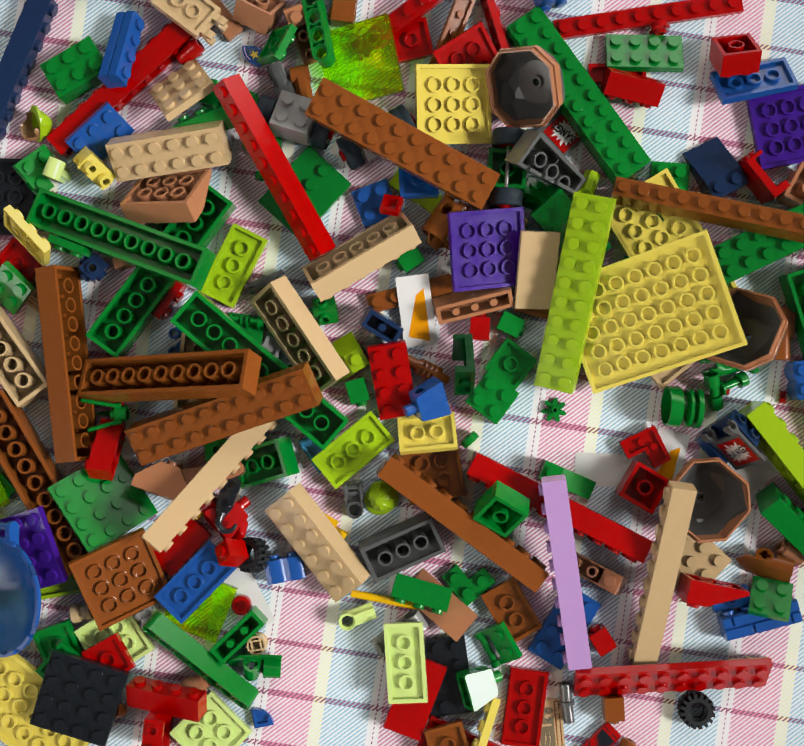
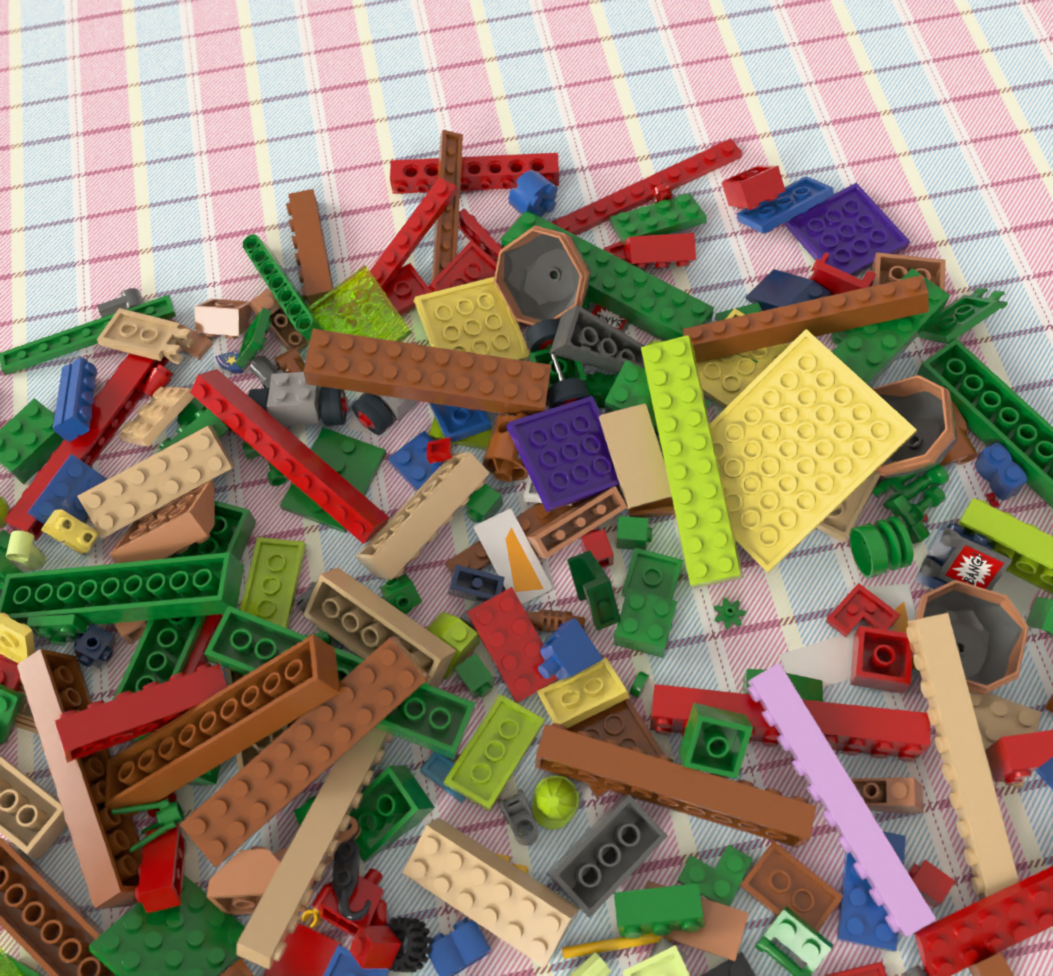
camera: 15 degrees left, 25 degrees down
(116, 343) = (135, 713): none -> red brick

